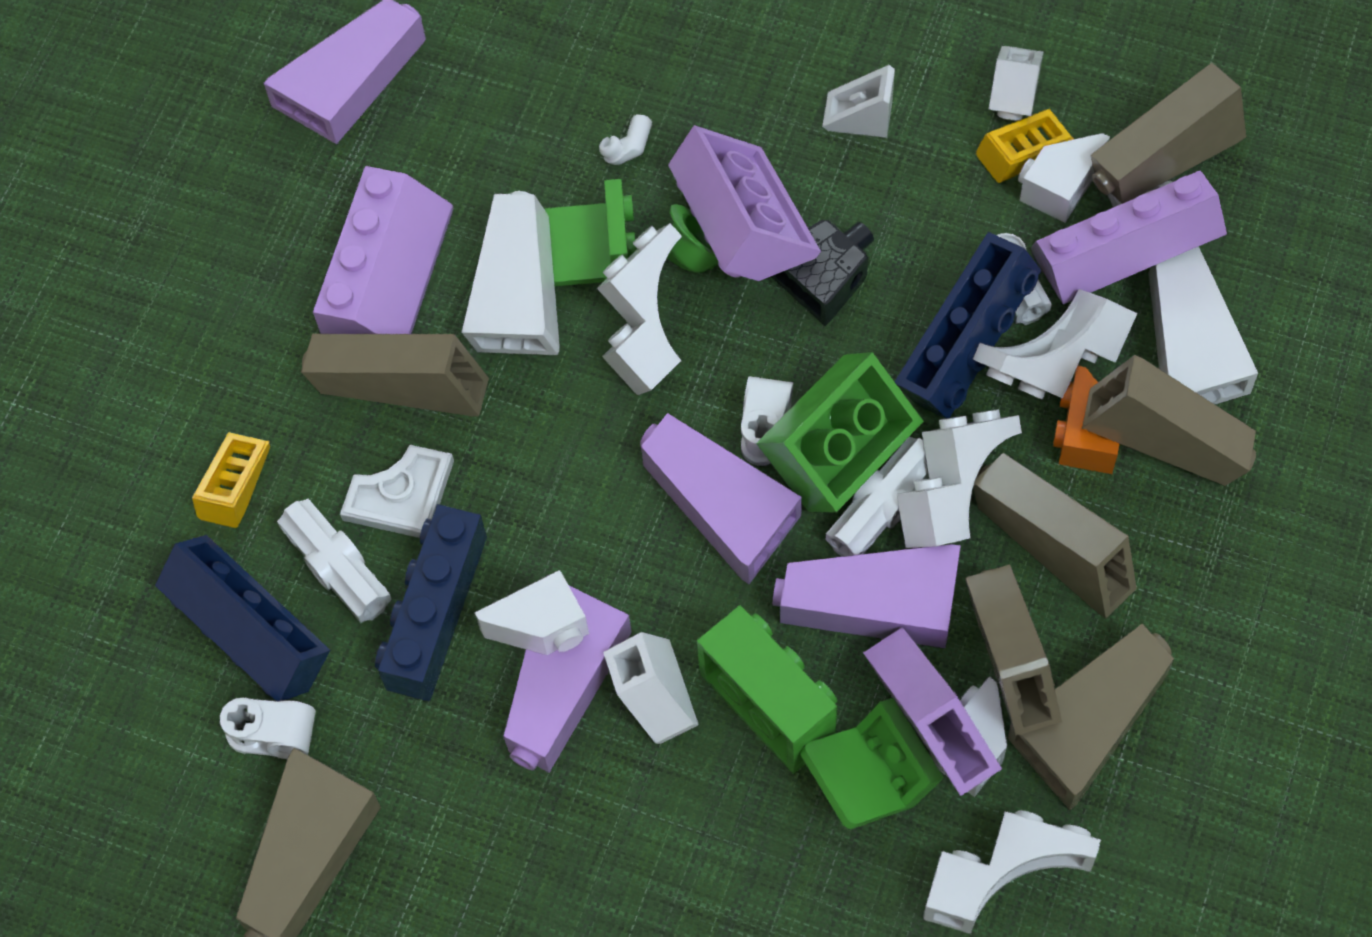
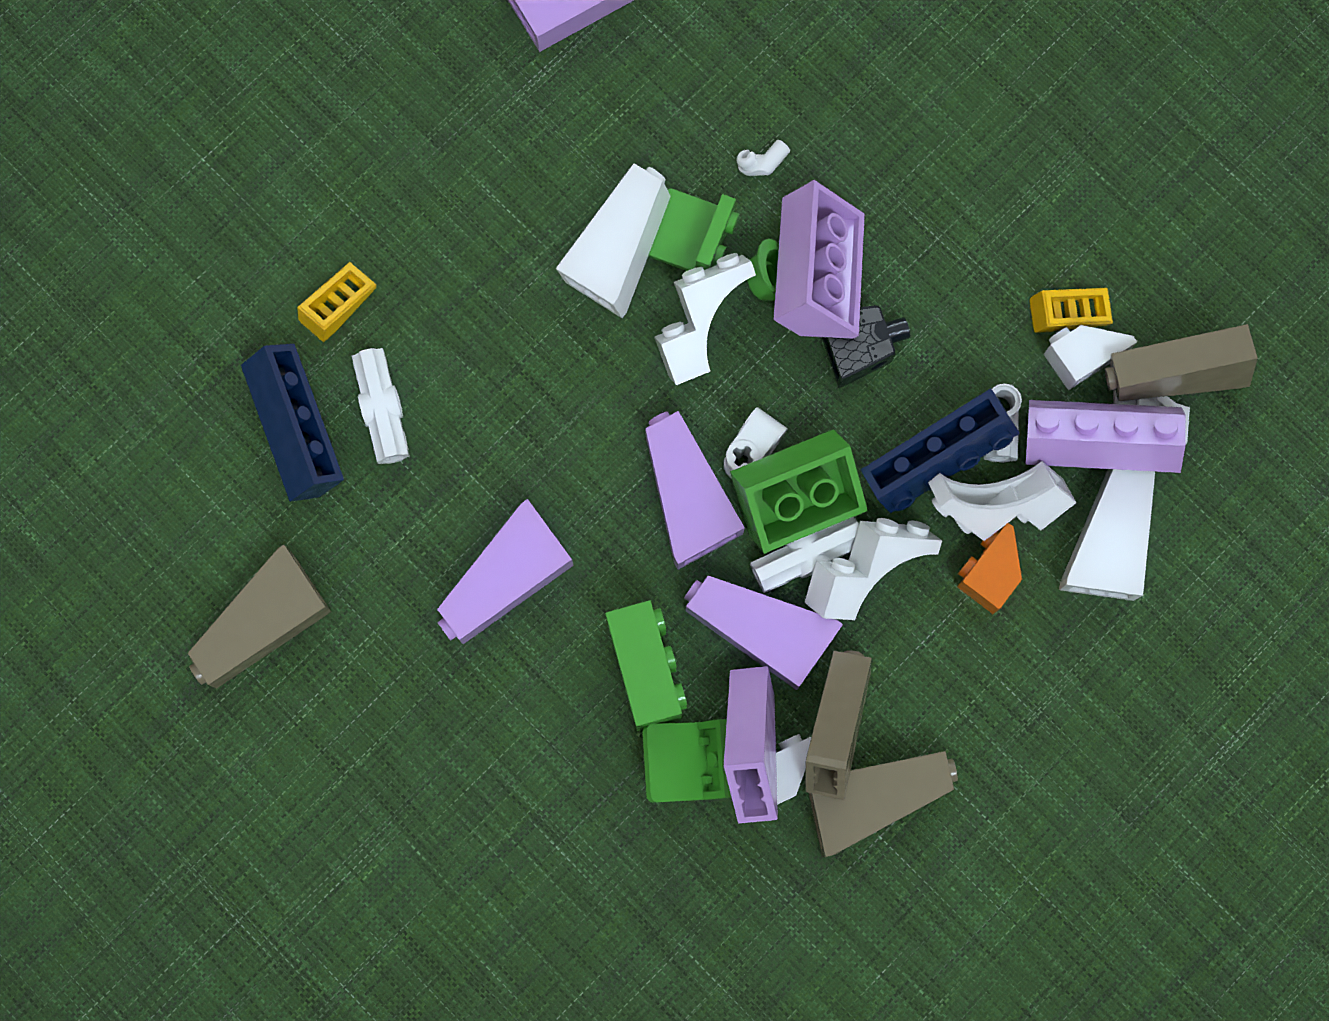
camera: 20 degrees right, 15 degrees up
(274, 726) = (280, 518): white piece -> none
(383, 256) = (527, 175): lavender slope -> none
(397, 370) = (494, 275): dark tan slope -> none
(402, 495) = (455, 376): white tile -> none
(432, 602) = (436, 476): dark blue brick -> none
(536, 617) = (502, 533): white slope -> none
(651, 685) = (563, 620): white slope -> none
(862, 105) = (959, 216): white slope -> none
(1015, 82) = (1092, 253): white slope -> none
(1022, 846) = (771, 869): white arch -> none
(1059, 533) = (922, 645): dark tan slope -> none
(1169, 422) = (1050, 606): dark tan slope -> none

